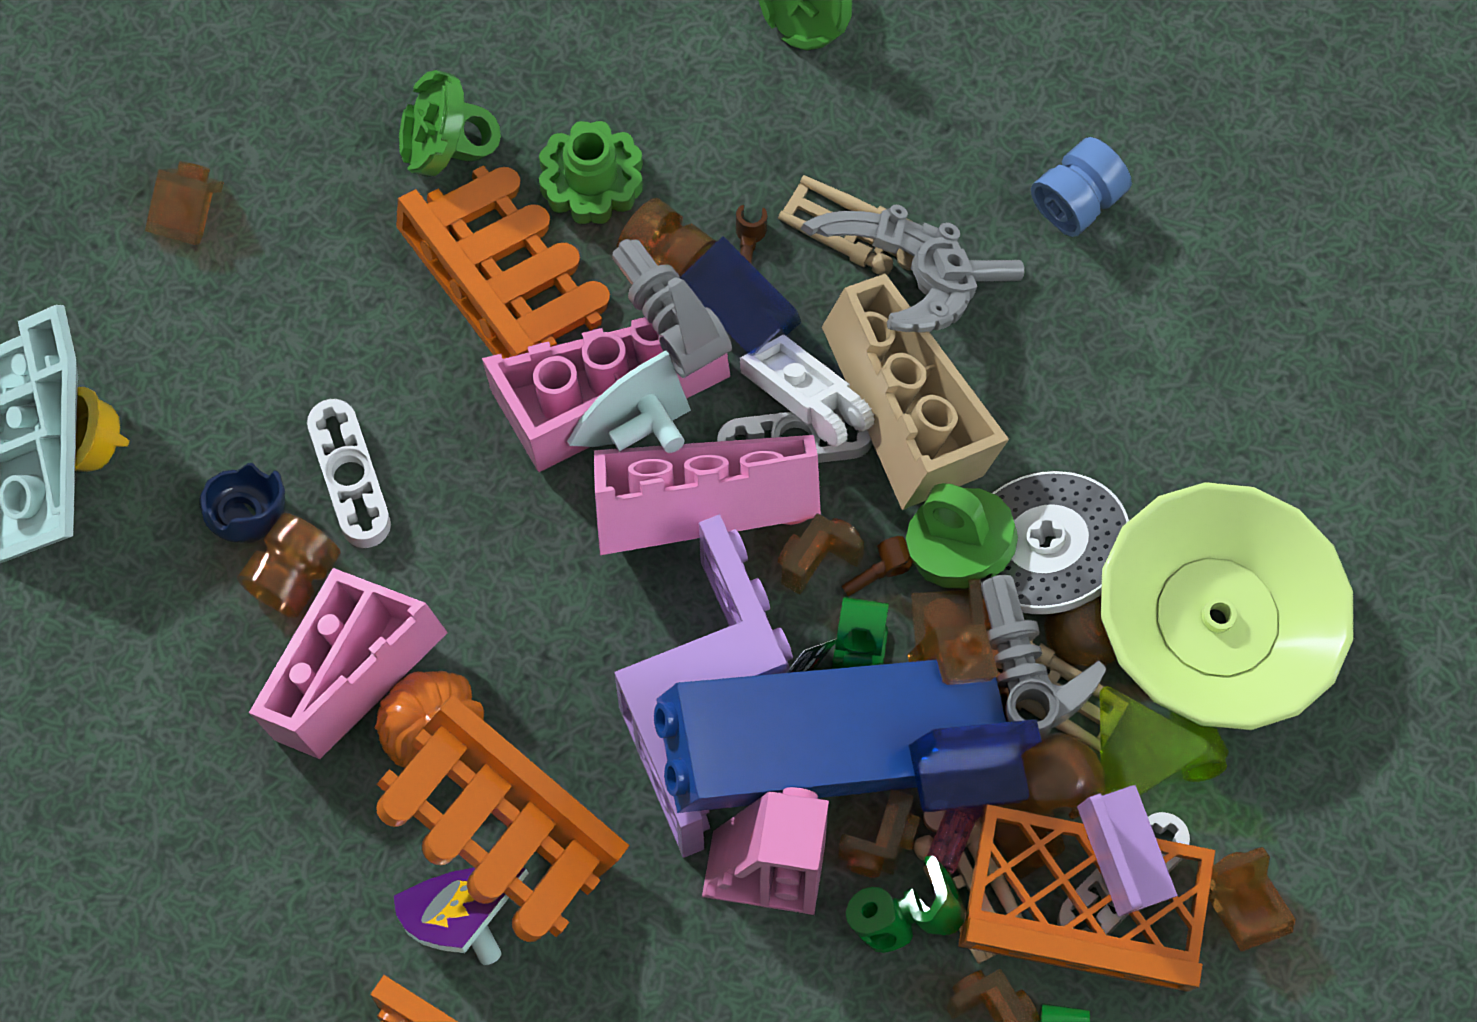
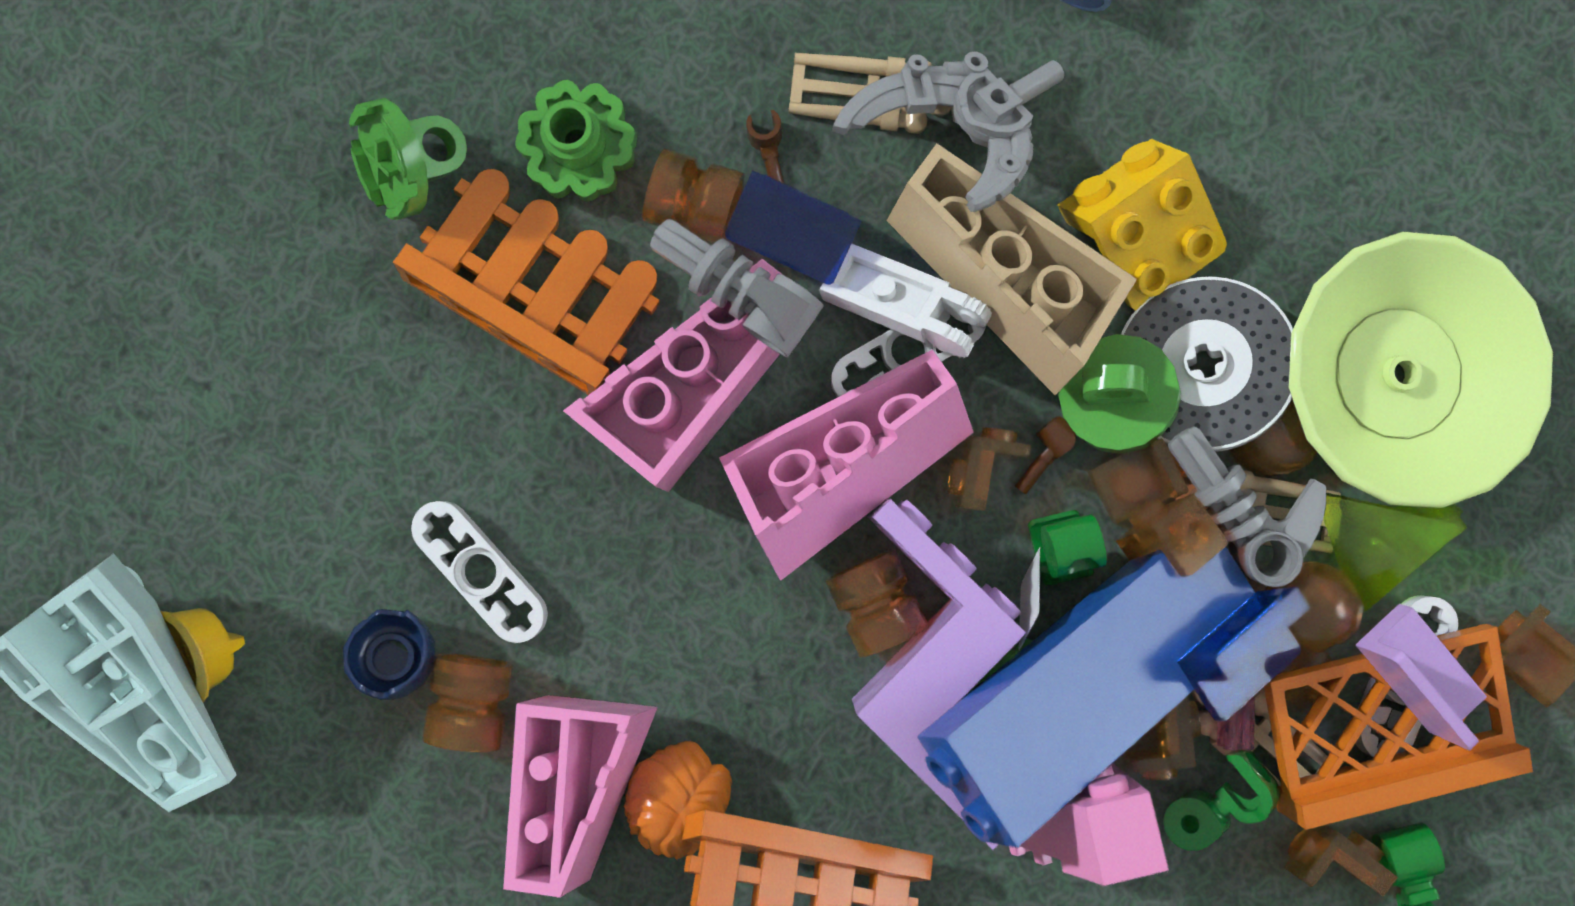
camera: 20 degrees left, 20 degrees up
(182, 202) = (169, 347): clear orange bracket -> none
(635, 407) = (749, 405): light aqua shield -> none
(674, 612) = (877, 604): none -> clear orange wheel
(1048, 413) = (1148, 218): none -> yellow bracket

